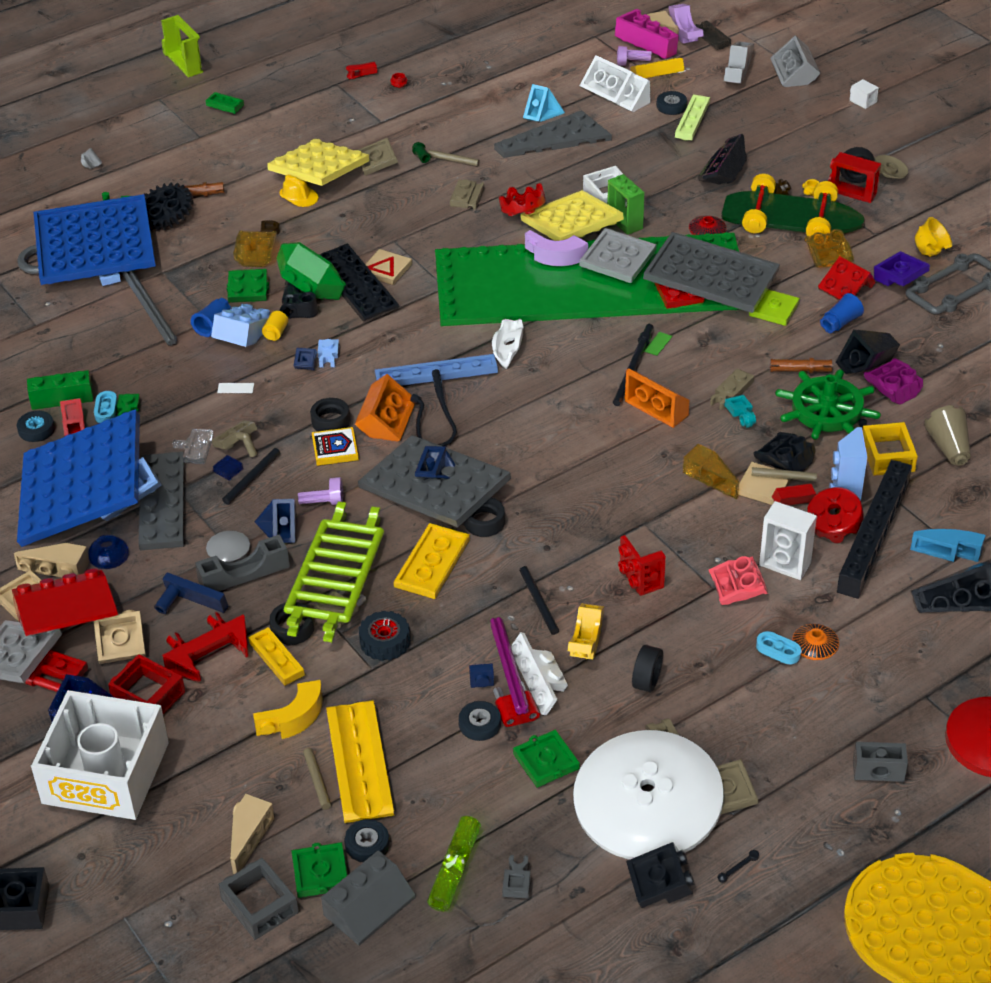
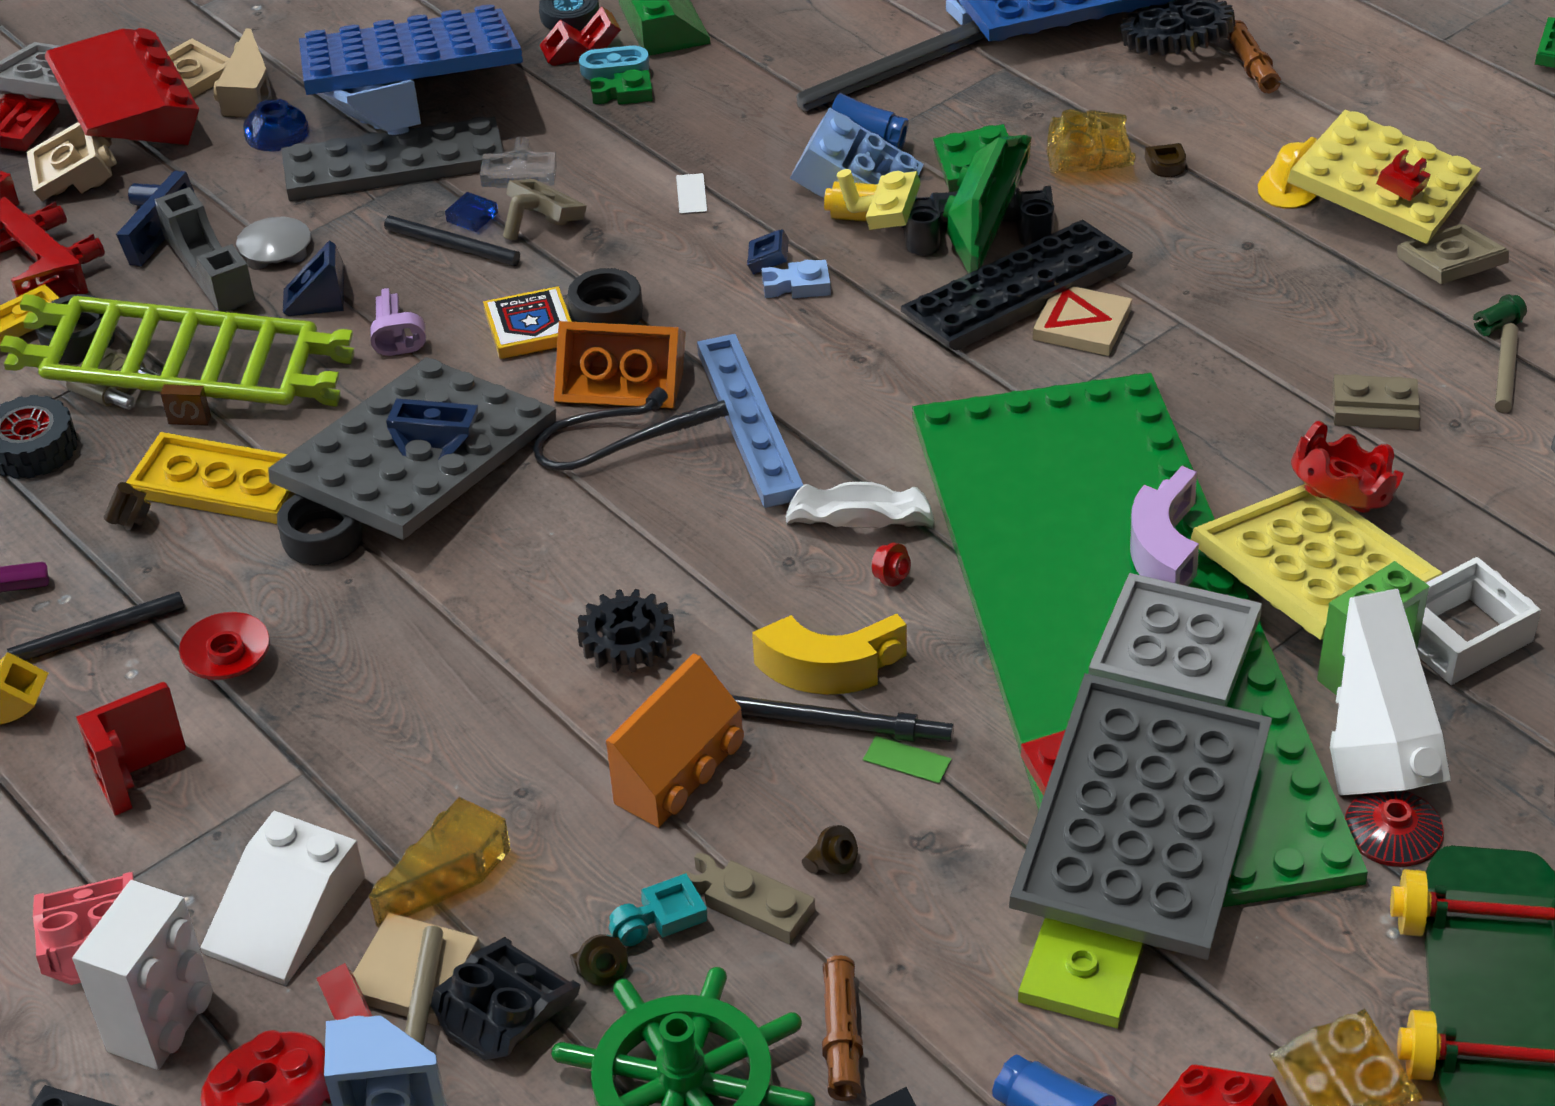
camera: 85 degrees right, 0 degrees up
(292, 304) = (889, 204): none -> light yellow plate
(337, 150) = (1403, 177): none -> red tile
(375, 570) = (185, 404): none -> reddish brown tile
(456, 588) = (127, 506): none -> dark brown plate
(548, 333) = (891, 564): none -> red plate
(567, 545) = (224, 645): none -> red dish
(577, 413) = (626, 630): none -> black gear
(604, 361) = (828, 662): none -> yellow arch
(676, 203) = (1386, 714): none -> white wedge
(711, 363) = (834, 851): none -> dark brown plate
(726, 519) = (283, 897): none -> white slope
(763, 428) = (600, 959): none -> dark brown plate

